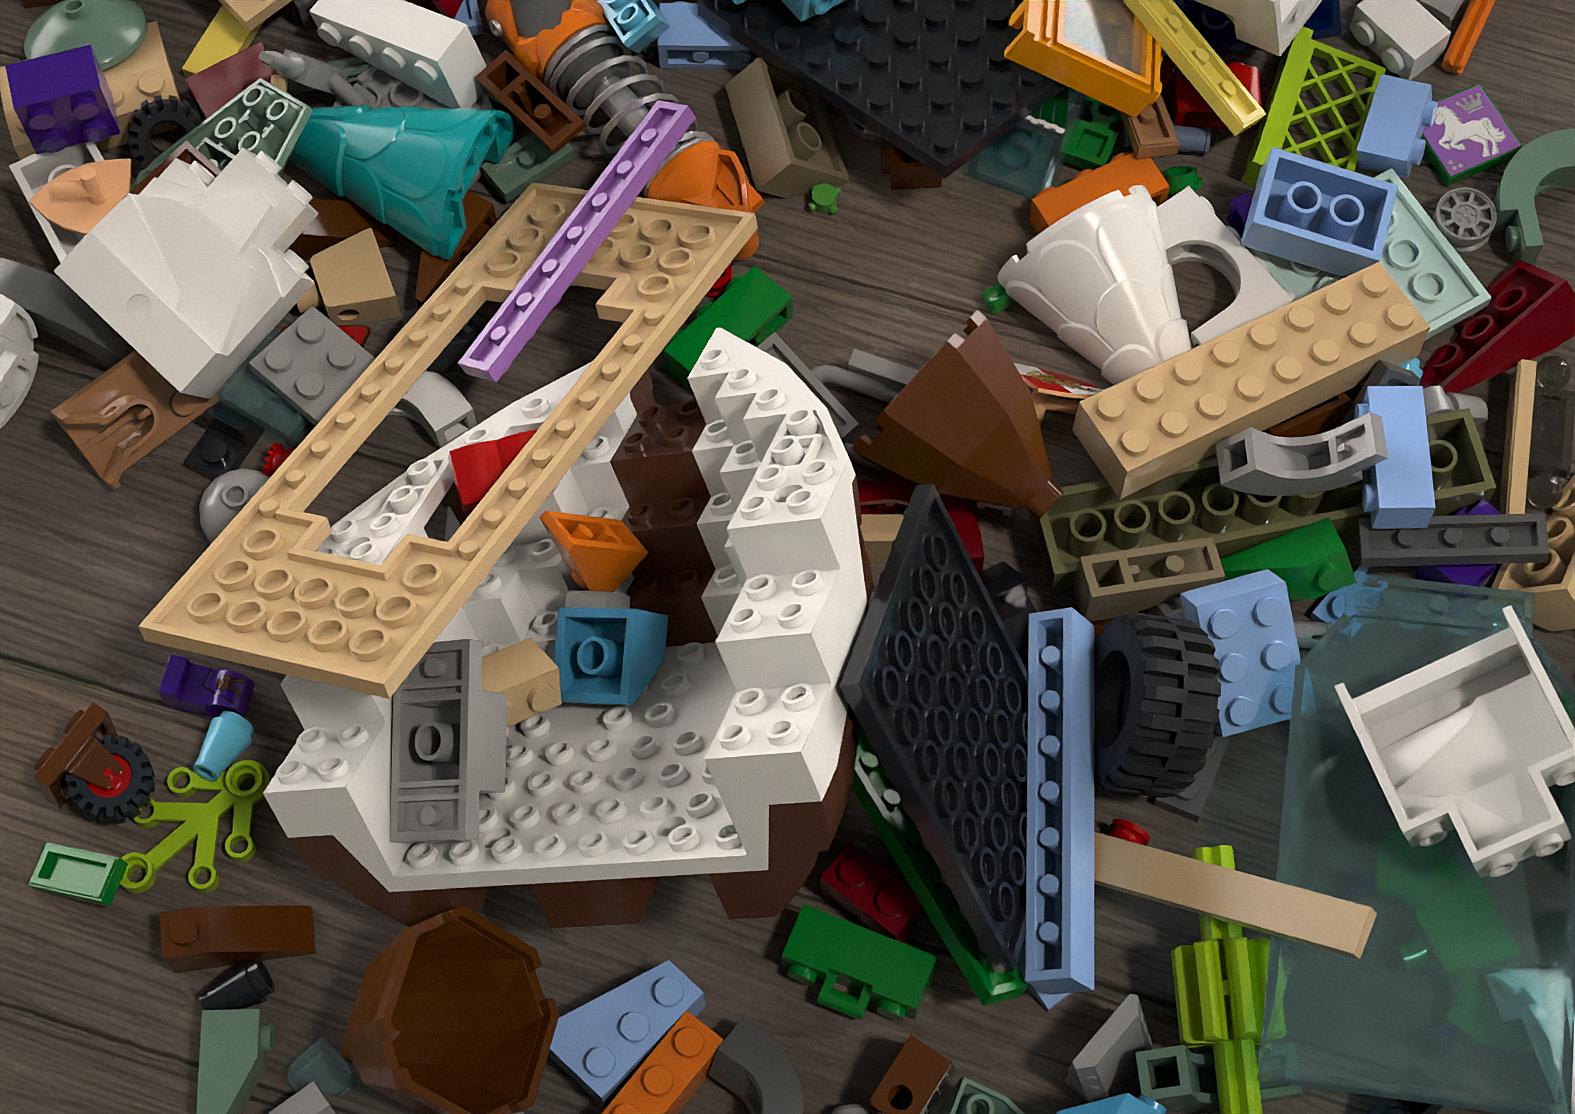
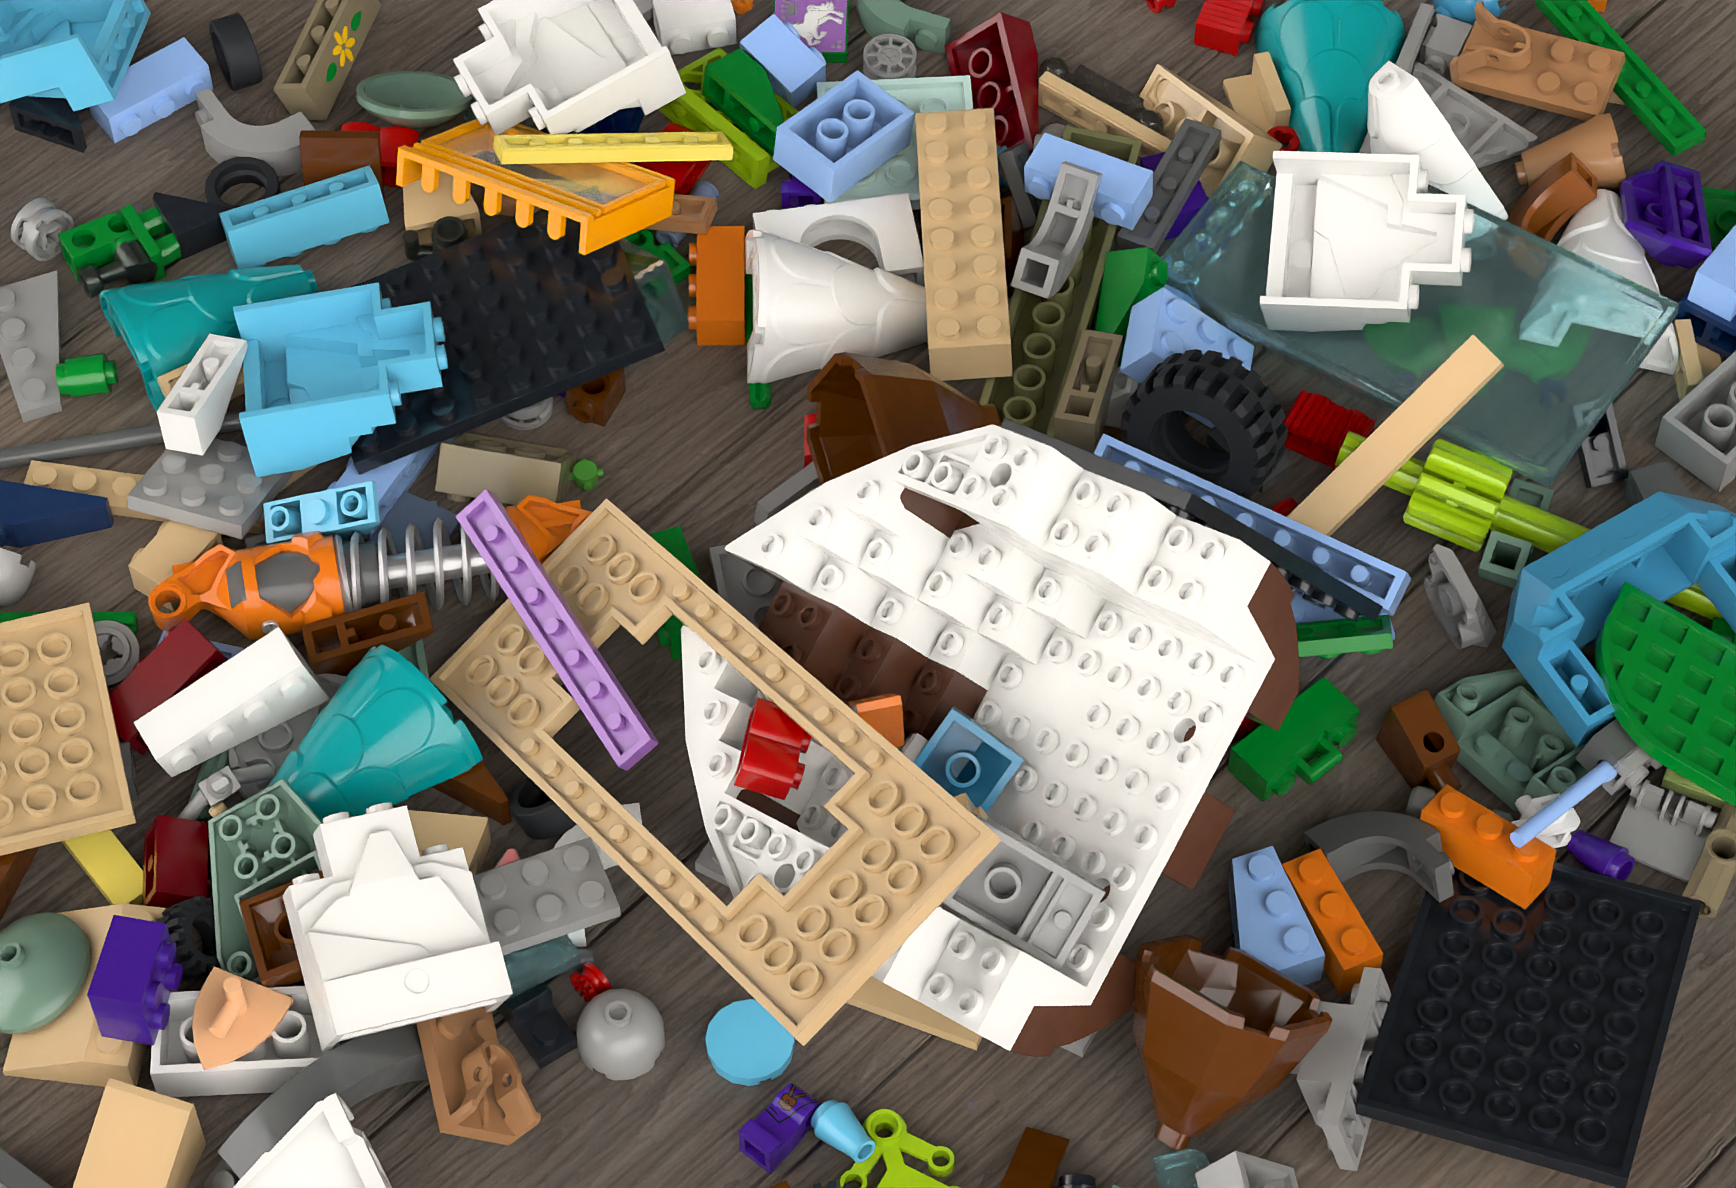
camera: 65 degrees left, 10 degrees down
(695, 86) = (420, 513): none -> sand blue piece
(1180, 178) = (737, 217): green plate -> none
(1253, 825) = (1320, 427): none -> red brick
(1330, 108) = (745, 96): none -> green slope

